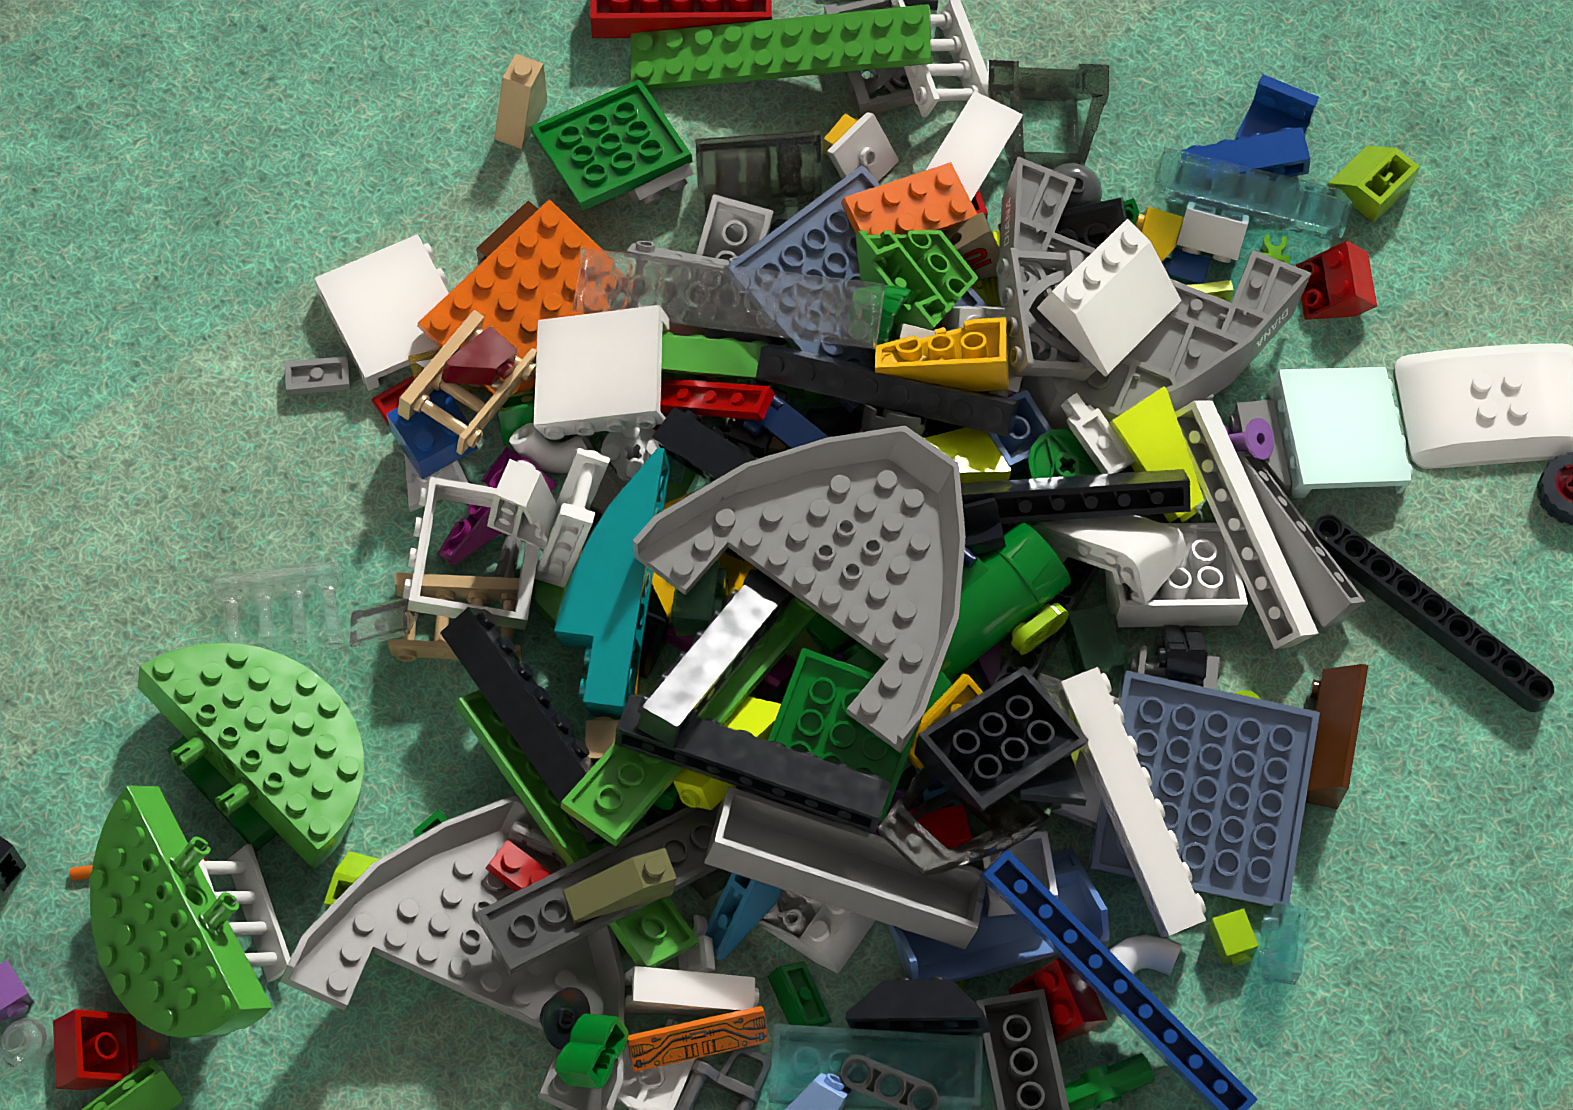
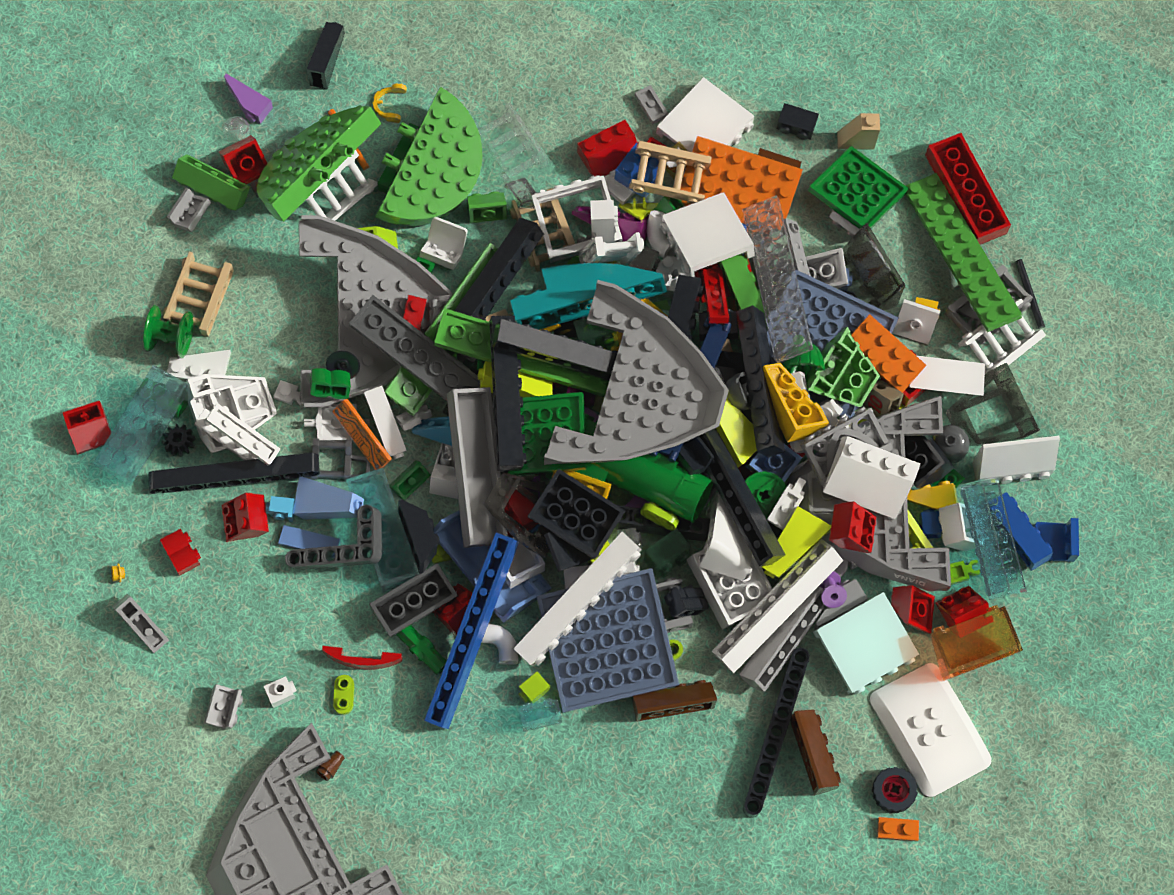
camera: 65 degrees right, 5 degrees up
(84, 753) = (390, 117): none -> yellow piece
(367, 468) = (607, 148): none -> red slope
(377, 687) = (487, 207): none -> bright green slope
(412, 779) = (444, 243): none -> white bracket
(453, 182) = (797, 121): none -> black brick
(481, 360) = (681, 171): dark red slope -> none
(491, 462) = (638, 210): none -> neon yellow piece
(622, 886) = (416, 358): olive slope -> none
(1142, 118) = (1017, 459): none -> white slope
(1176, 360) = (852, 527): none -> red slope
(1305, 347) = (914, 607): none -> red slope
(1376, 179) = (1044, 609): lime slope -> none
(1400, 283) = (975, 642): none -> clear orange windscreen
(1484, 572) = (814, 751): none -> reddish brown slope

